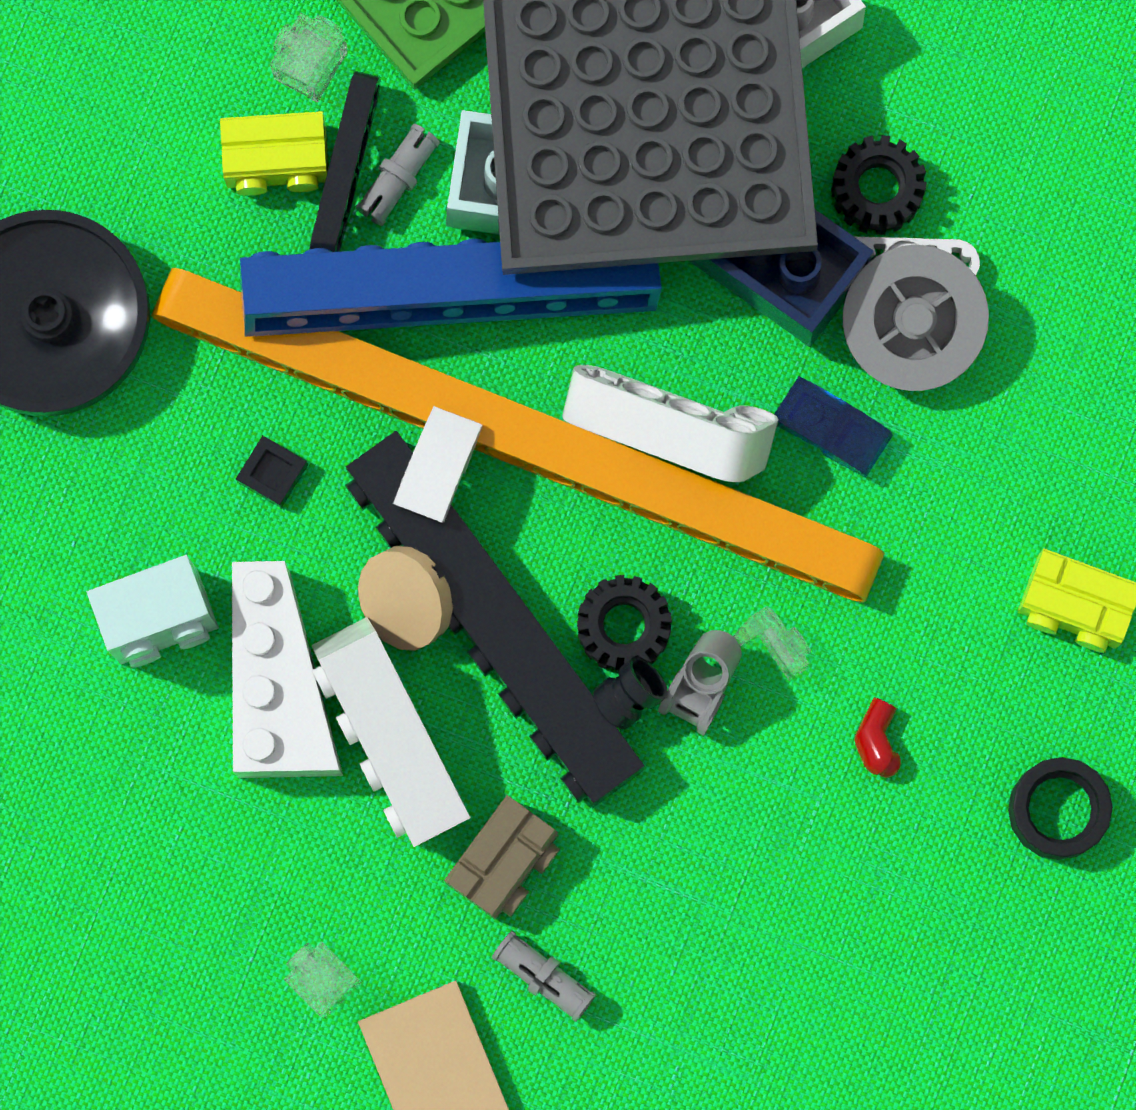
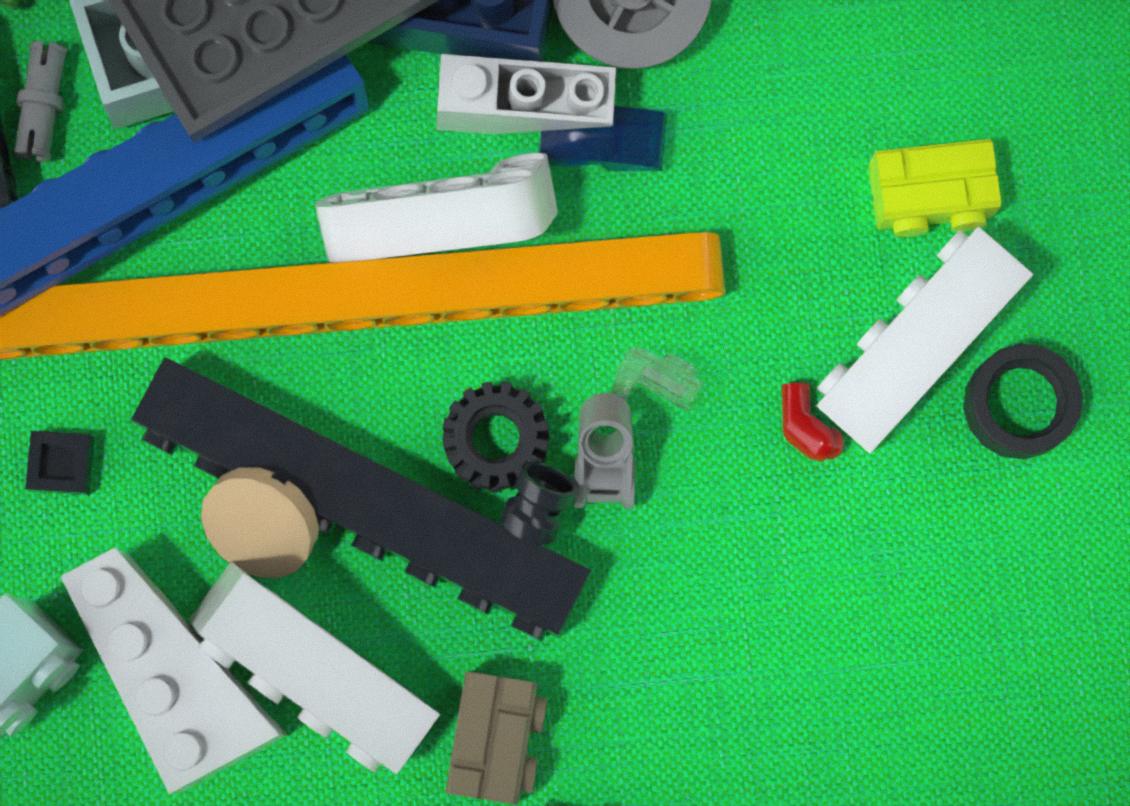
camera: 30 degrees left, 0 degrees up
(438, 464) = (224, 369): white slope -> none
(783, 362) = (522, 95): none -> white slope
(1003, 716) = (923, 339): none -> white wedge

